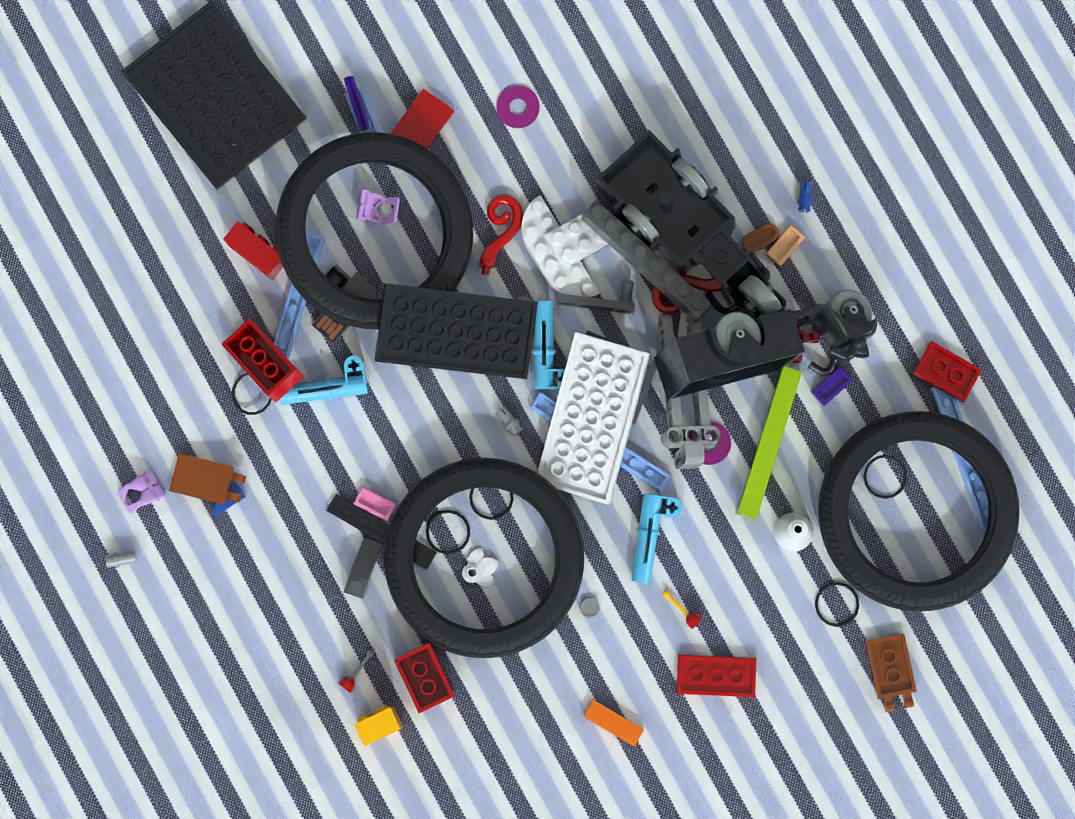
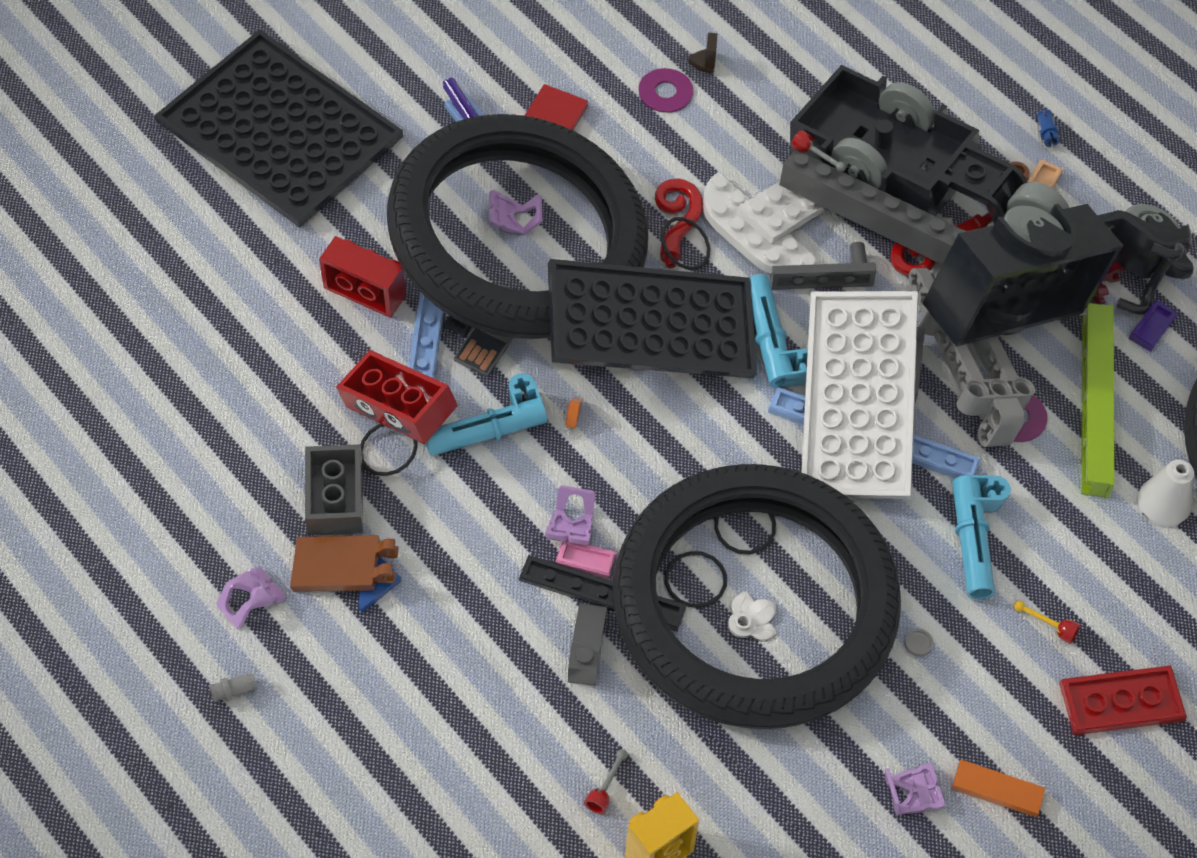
camera: 15 degrees left, 25 degrees down
(208, 423) = (333, 489): none -> dark grey brick
(369, 482) = (563, 528): none -> lavender piece
(389, 385) = (573, 413): none -> orange tile
(424, 678) = (711, 768): red brick -> none
(482, 252) = (669, 254): none -> black piece
(510, 422) = (749, 429): light grey pin -> none
(554, 83) = (705, 59): none -> dark brown tile
(562, 714) = (922, 790): none -> lavender piece
(603, 197) = (804, 142): none -> hinge

